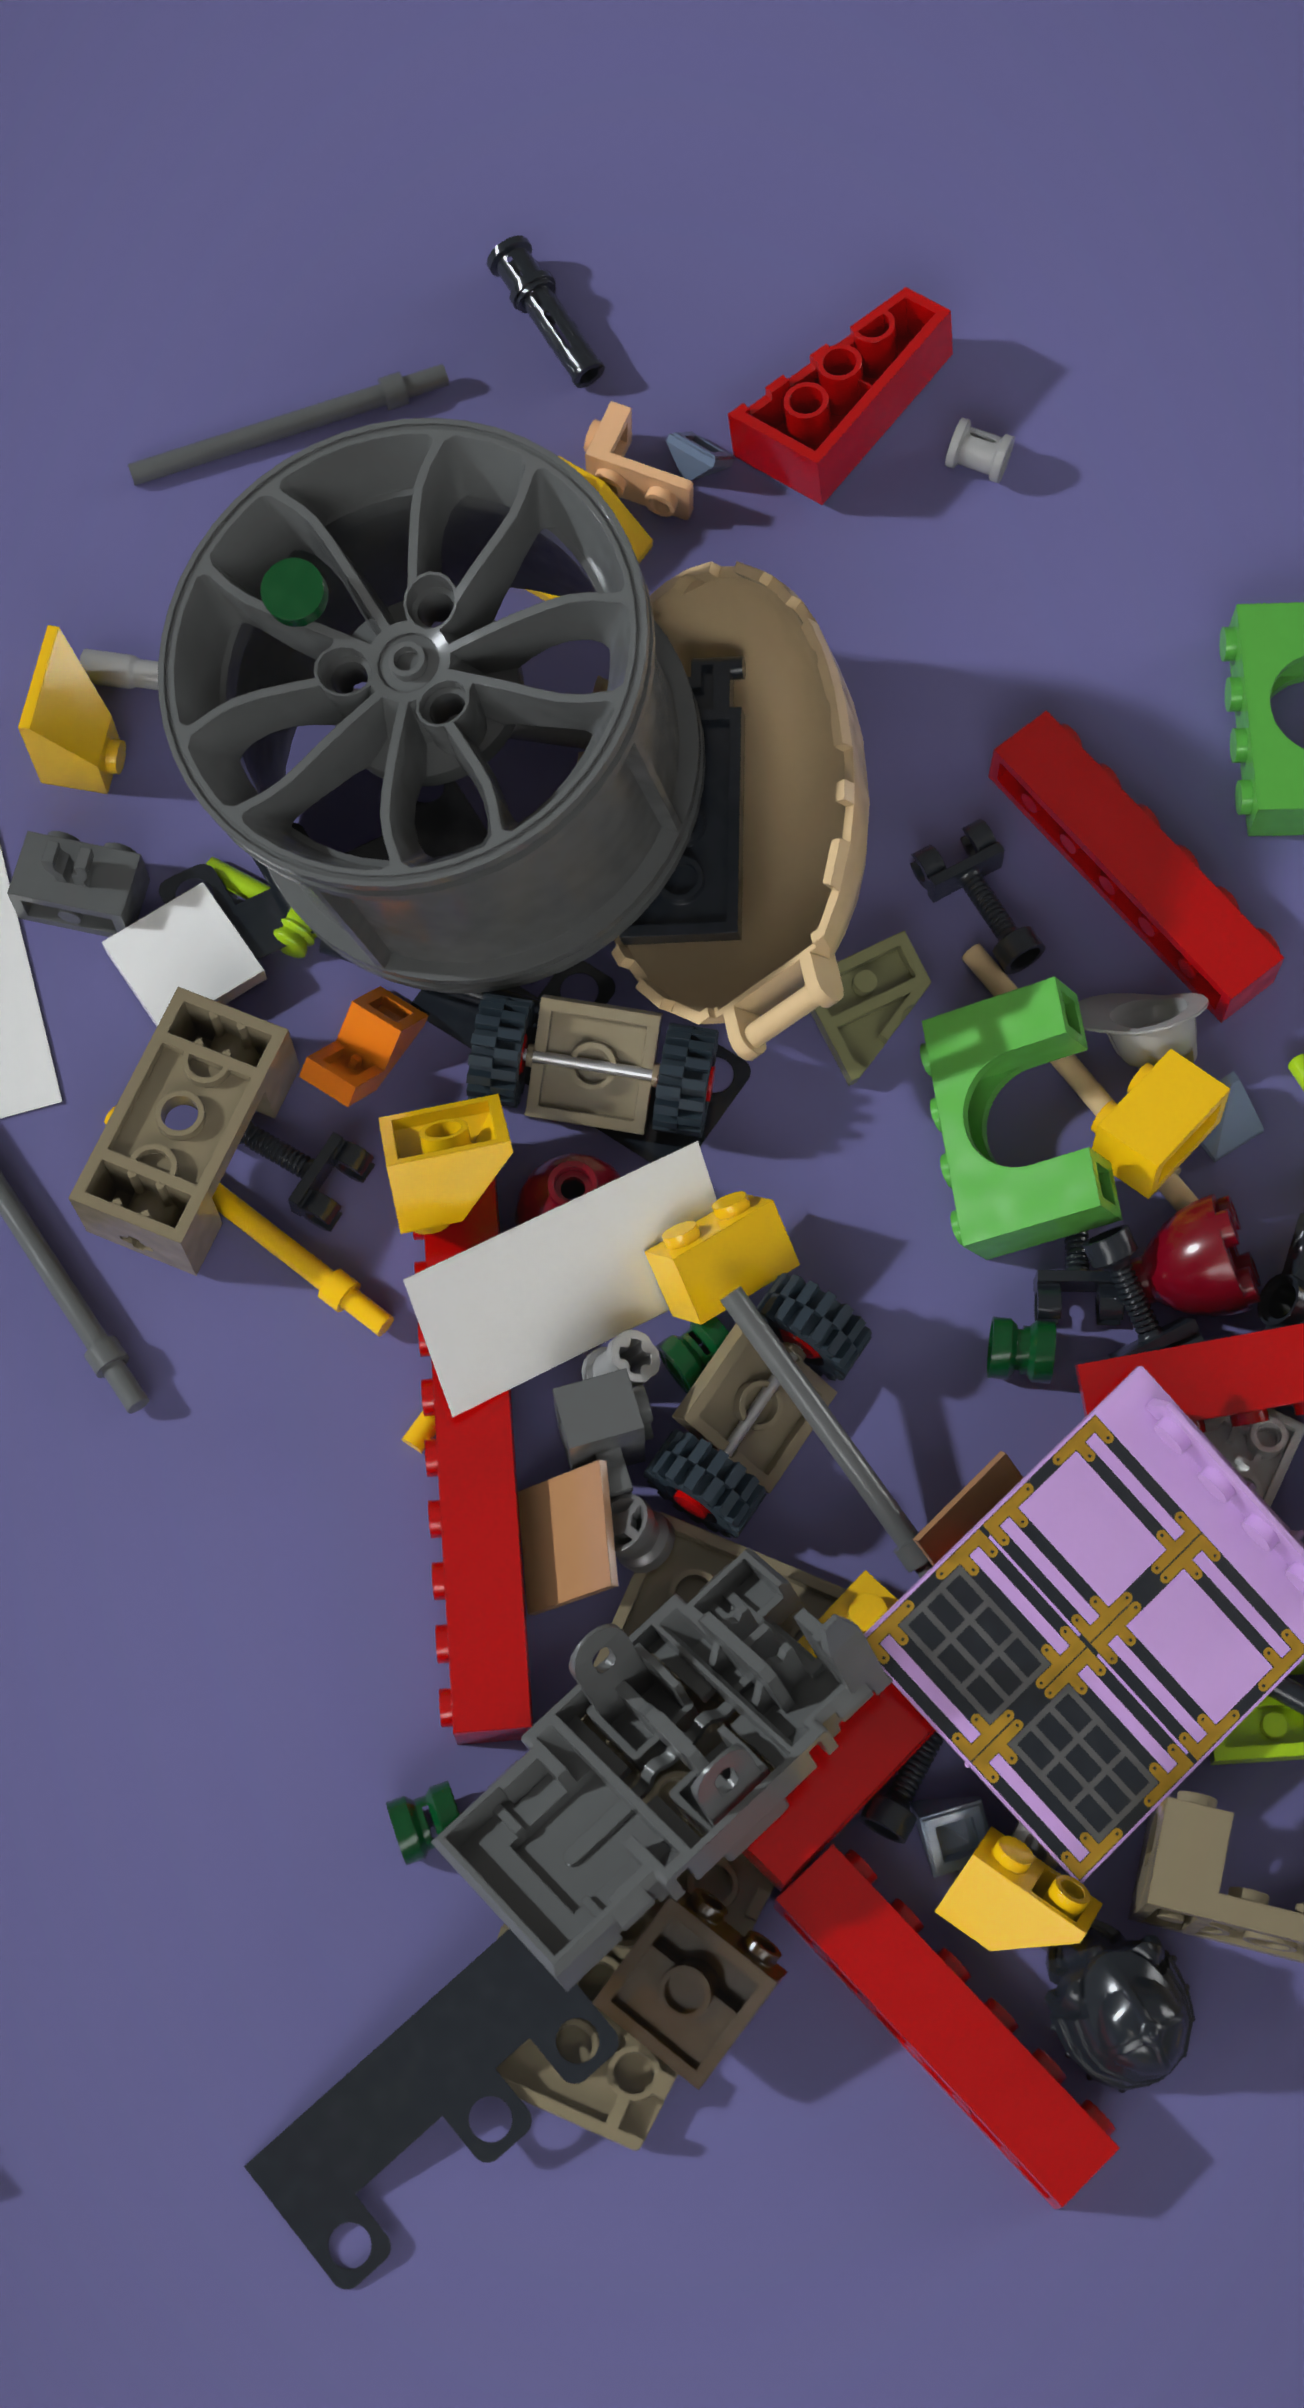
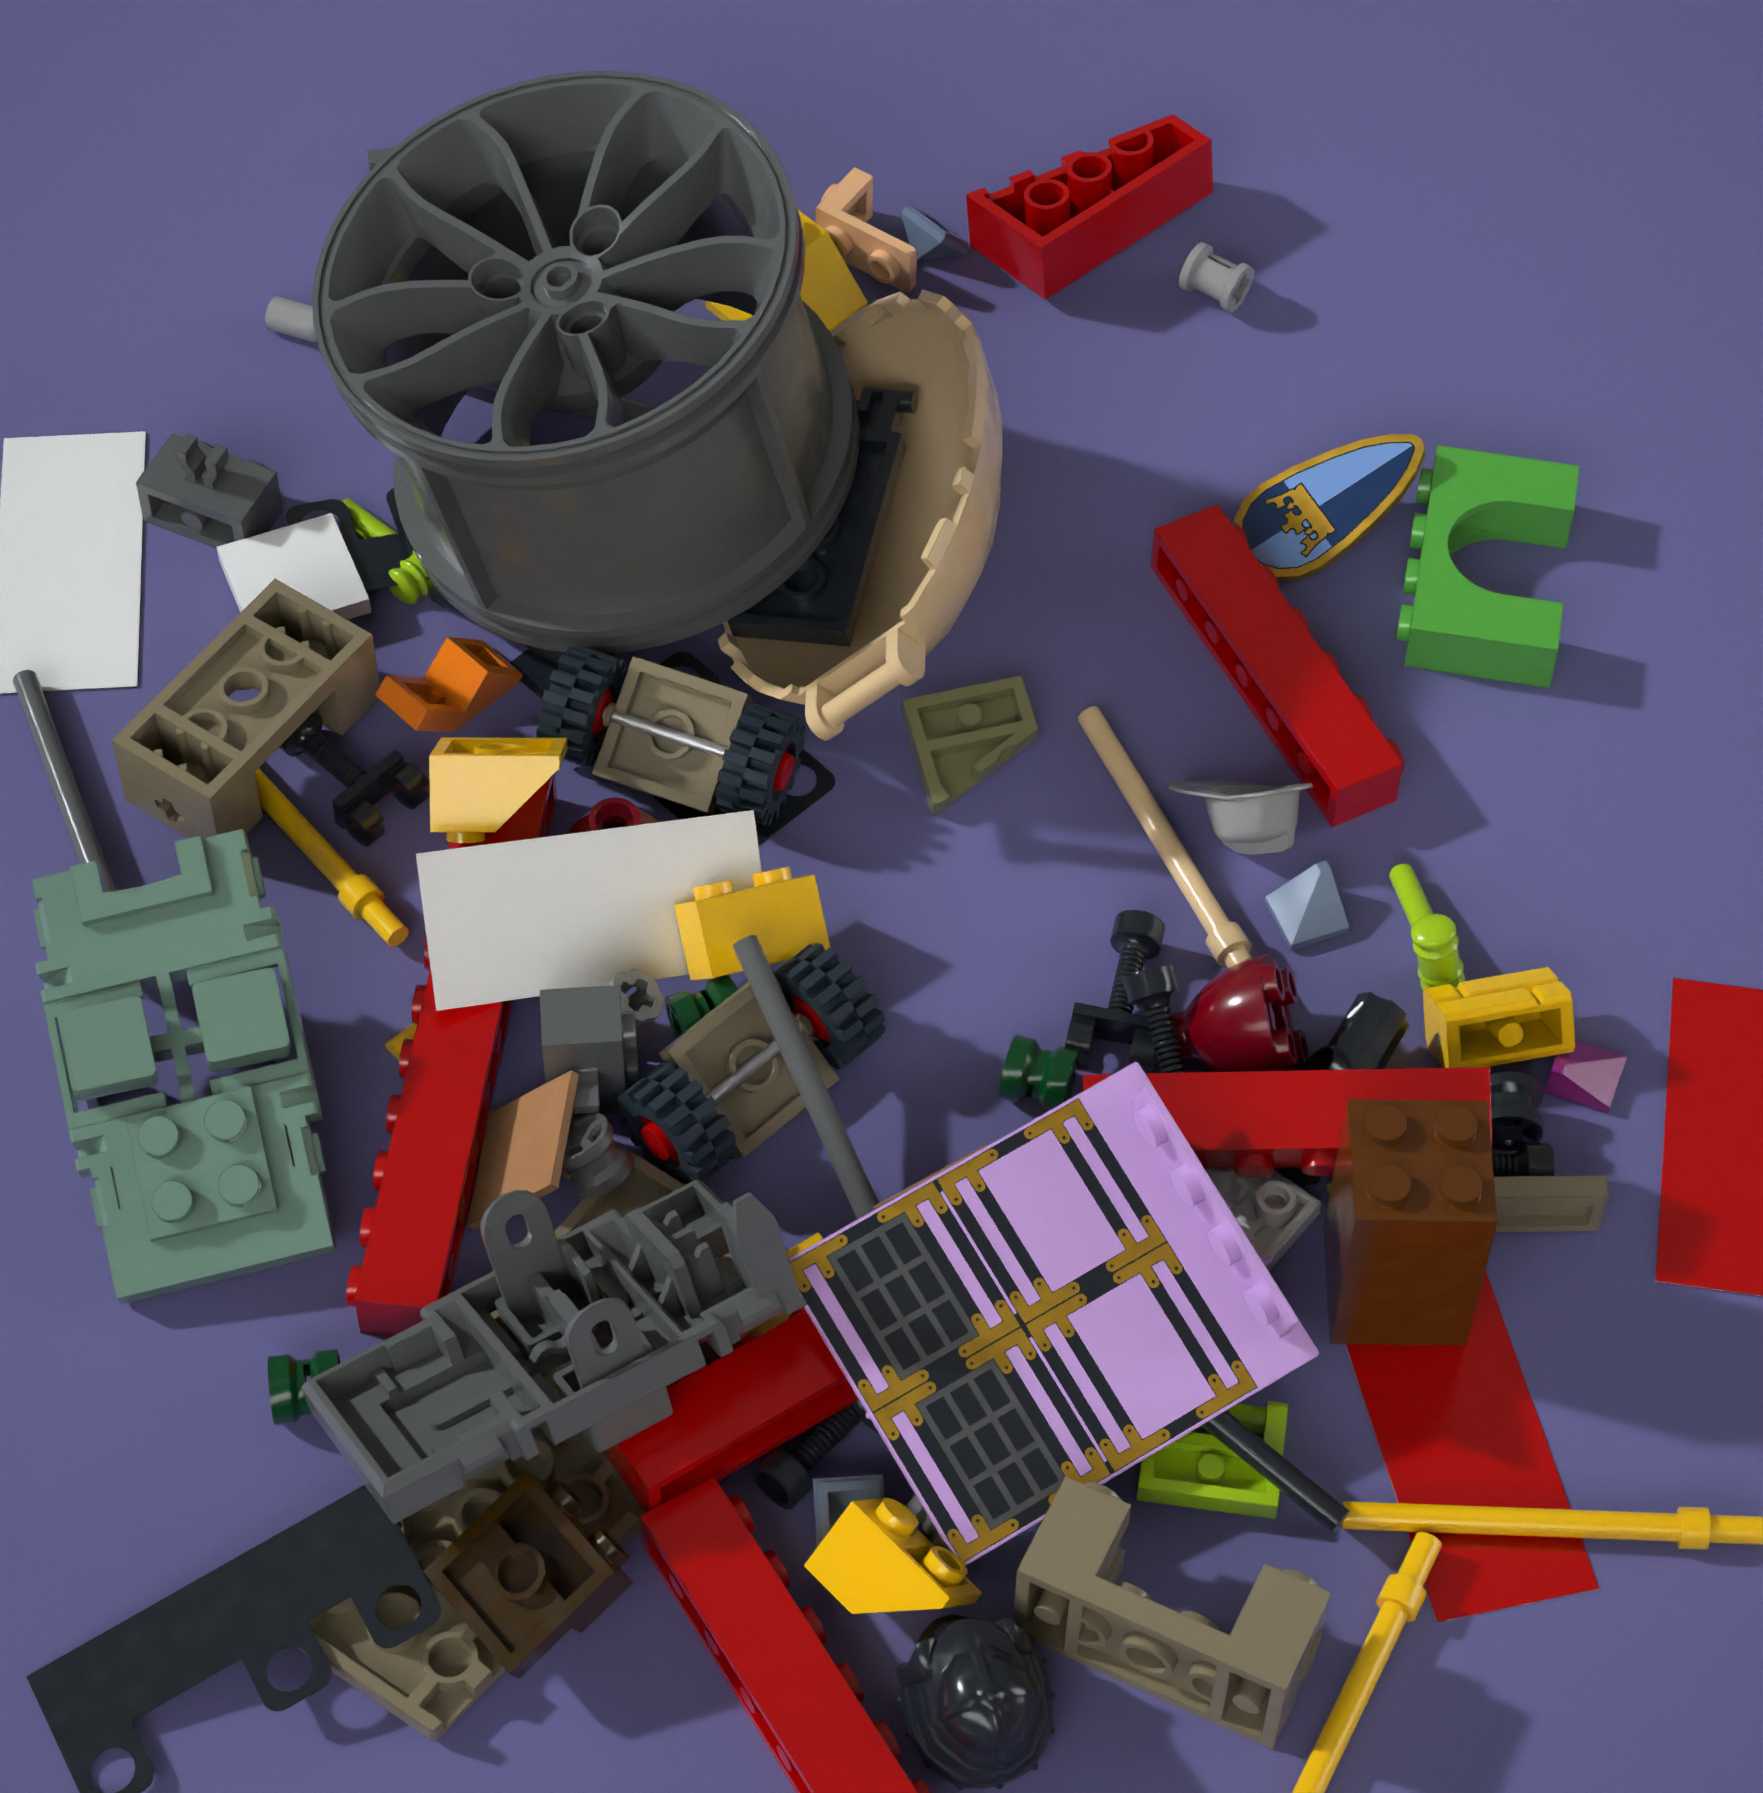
camera: 10 degrees right, 15 degrees down
(68, 723) = (239, 349): yellow slope -> none
(280, 1635) = (212, 1179): none -> sand green piece
(294, 592) = (467, 200): dark green tile -> none
(536, 295) = (836, 134): black pin -> none
(970, 1061) = (1056, 802): bright green arch -> none
(1016, 946) = (1135, 714): black bar -> none
(1144, 684) = (1327, 503): none -> shield
(1158, 1121) = (1233, 887): yellow brick -> none

